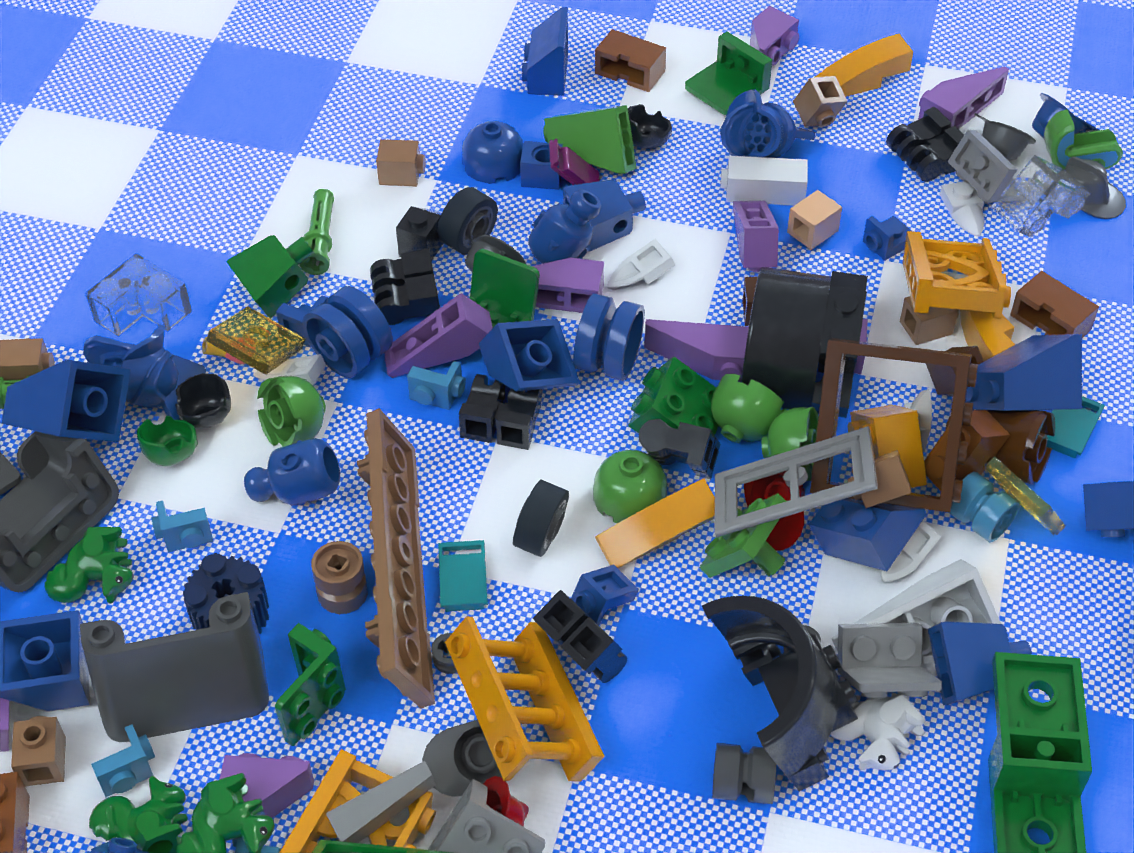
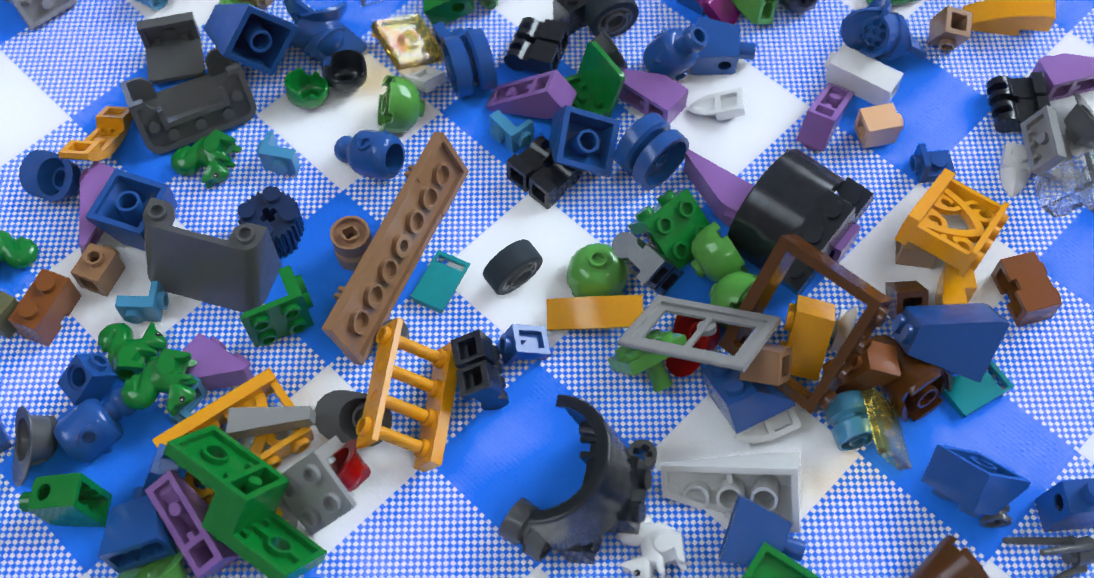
camera: 30 degrees right, 10 degrees up
(884, 659) = (686, 502): light grey bracket -> none

